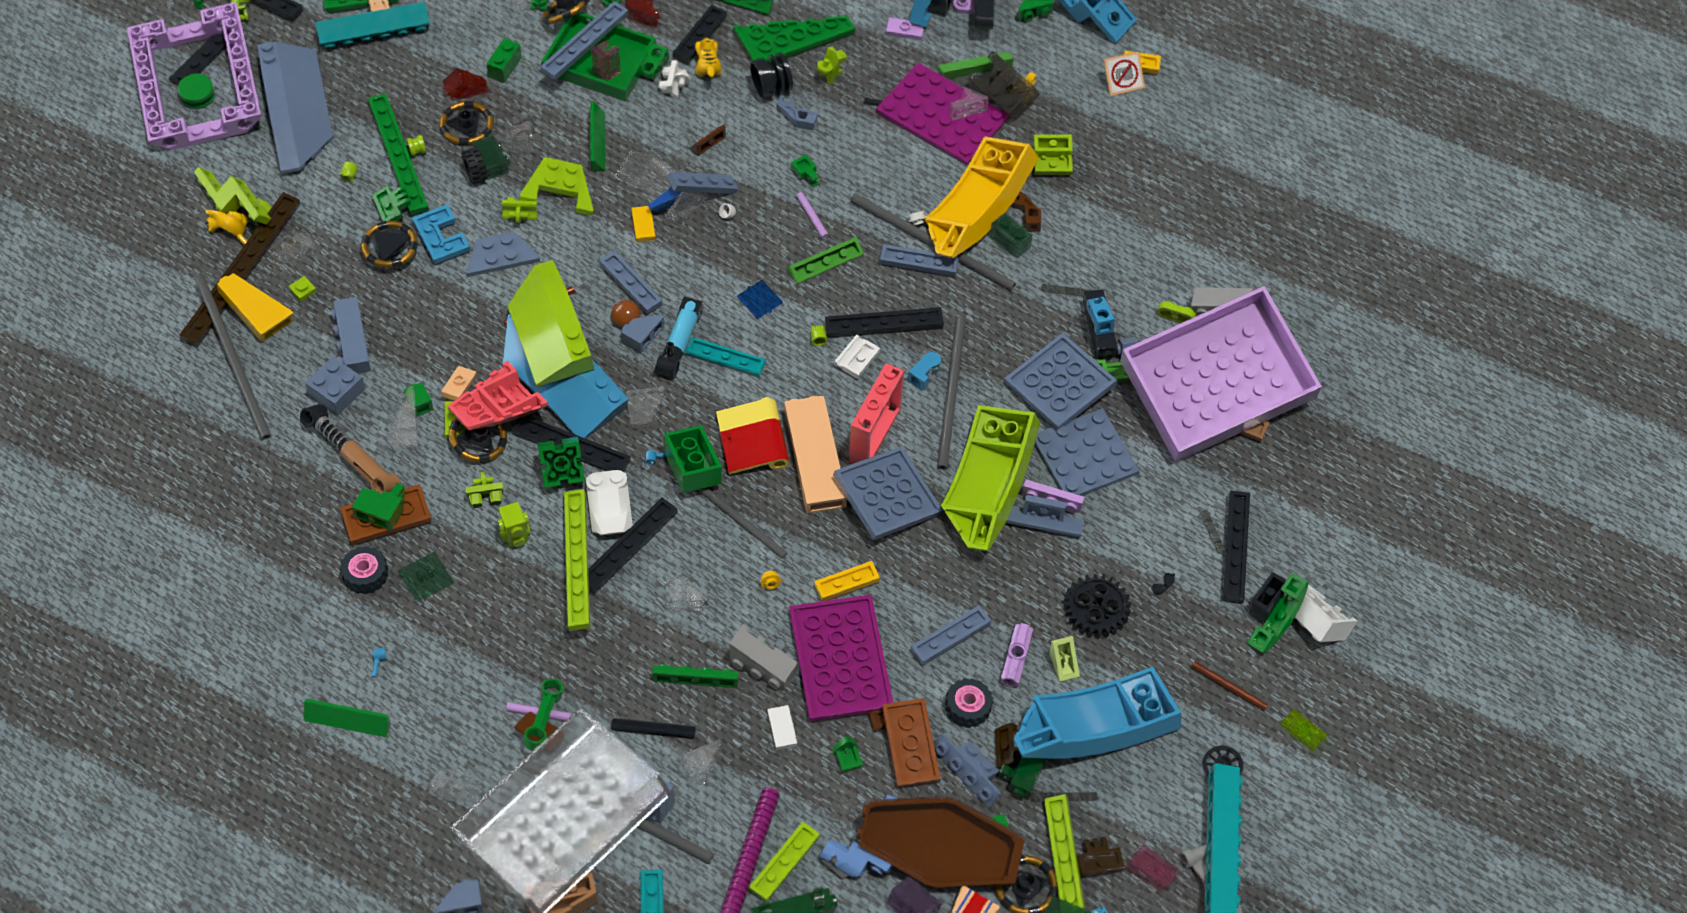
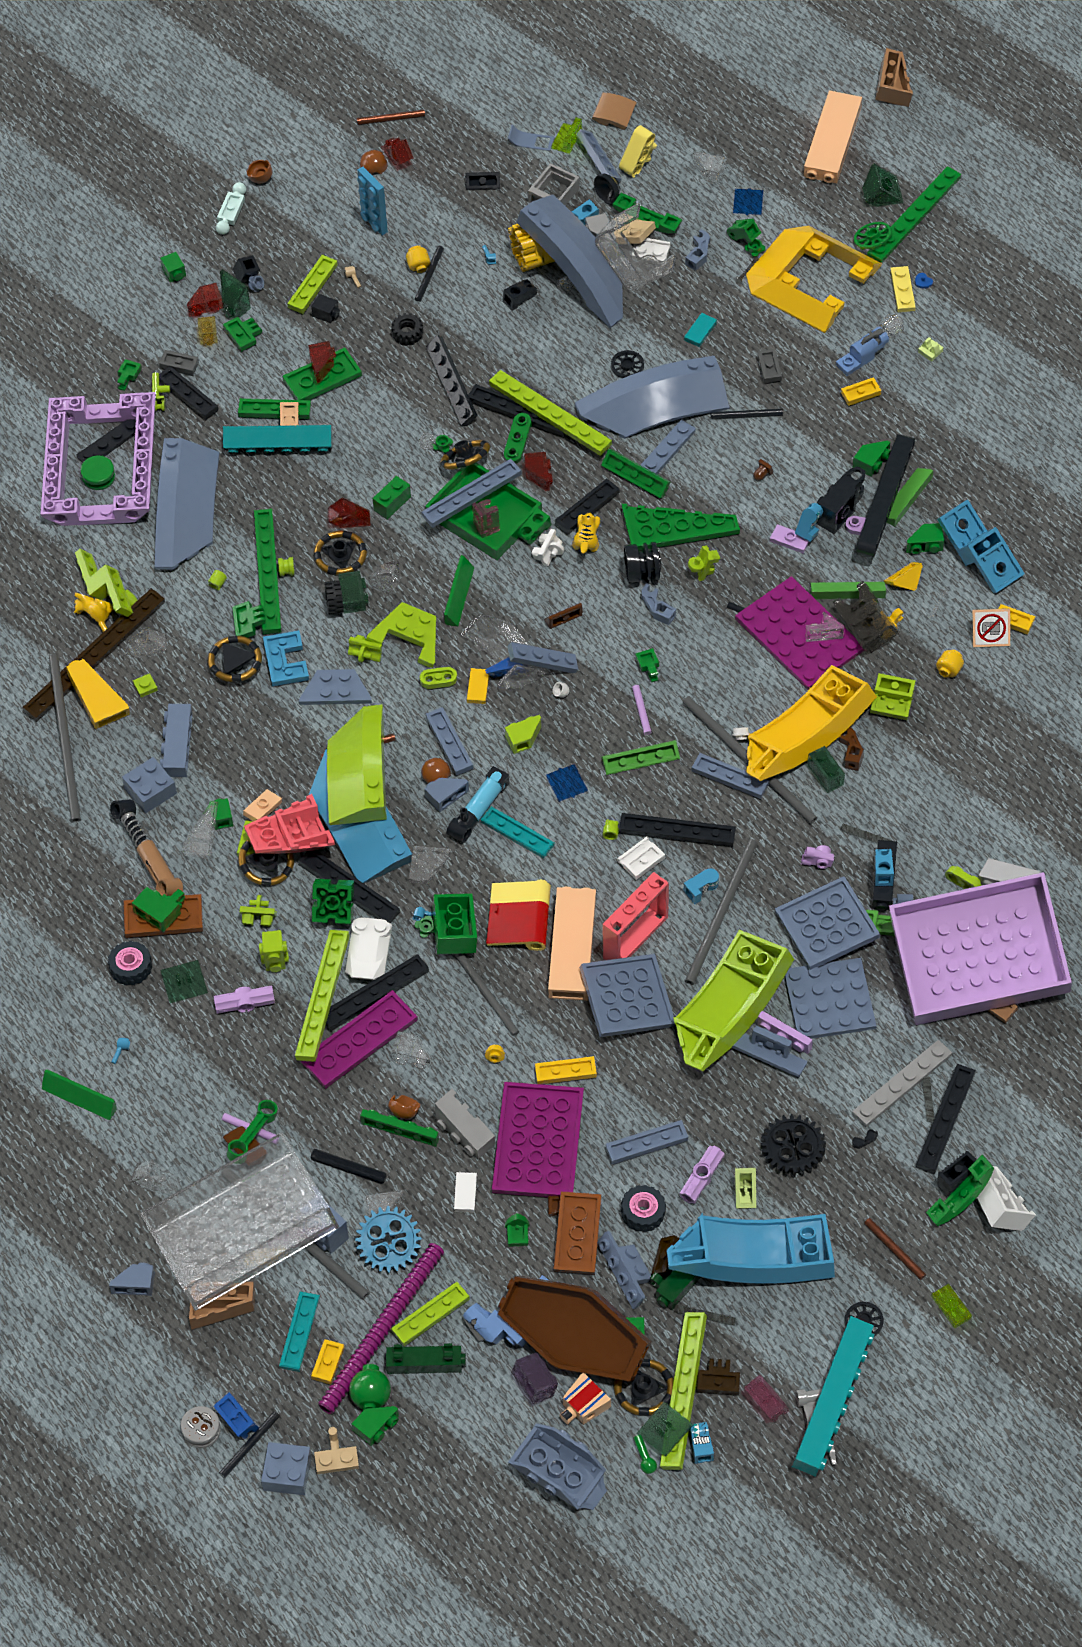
camera: 20 degrees right, 0 degrees up
(495, 580) = (244, 999): none -> lavender piece
(601, 224) = (438, 677): none -> lime plate
(628, 595) = (360, 1038): none -> magenta plate
(661, 462) = (424, 932): none -> green plate
(694, 655) = (404, 1107): none -> dark orange hair
(703, 260) = (523, 734): none -> lime slope
(709, 777) = (383, 1221): none -> dark azure gear
(1027, 43) = (906, 577): none -> yellow slope
(1029, 319) = (820, 856): none -> lavender plate
(1096, 114) = (950, 663): none -> yellow head
(1181, 521) = (902, 1083): none -> light grey plate

